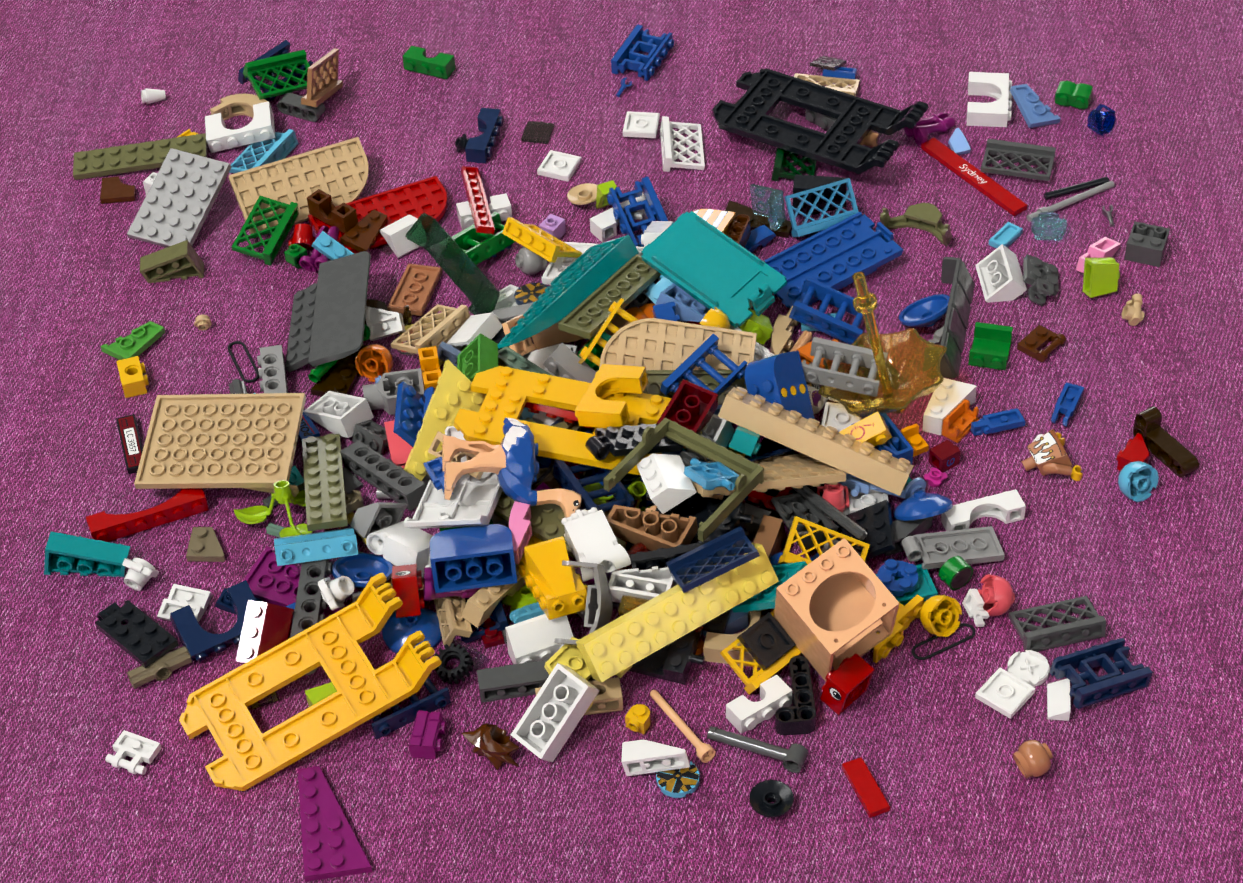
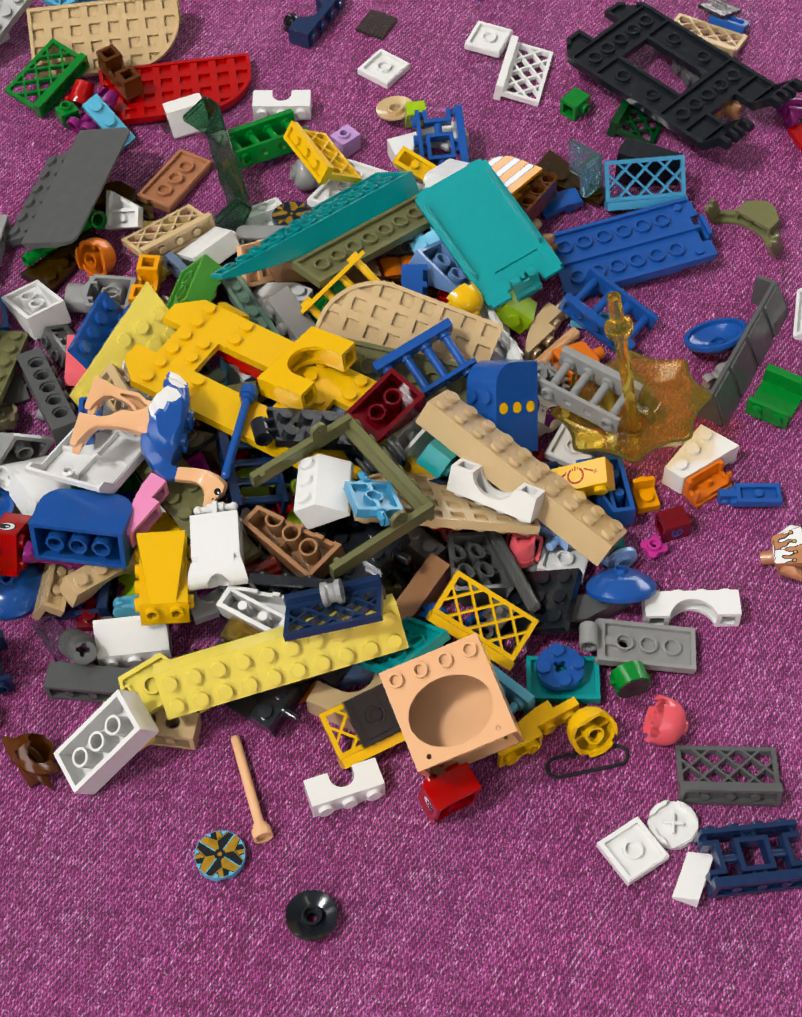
camera: 15 degrees right, 10 degrees up
(364, 233) = (145, 103): reddish brown wing -> none
(458, 672) = (23, 635): black tyre -> none
(477, 200) = (275, 92): tile -> none
(496, 653) = (77, 646): none -> dark grey piece
(571, 426) = (248, 395): none -> blue piece
(598, 599) = (201, 619): light grey piece -> none
(621, 228) = (410, 161): none -> yellow slope
(638, 718) = (204, 768): yellow plate -> none
(651, 757) = (190, 822): white slope -> none
(709, 547) = (332, 592): none -> light grey wheel
(737, 161) = (575, 104): none -> green brick
(776, 452) = (469, 481): none -> white arch
(792, 758) = (356, 867): dark grey piece -> none
(802, 715) = (394, 788): black beam -> none
(865, 787) = (426, 929): red tile -> none
(974, 606) = (637, 726): white plate -> none
(1033, 758) = (631, 952): nougat piece -> none

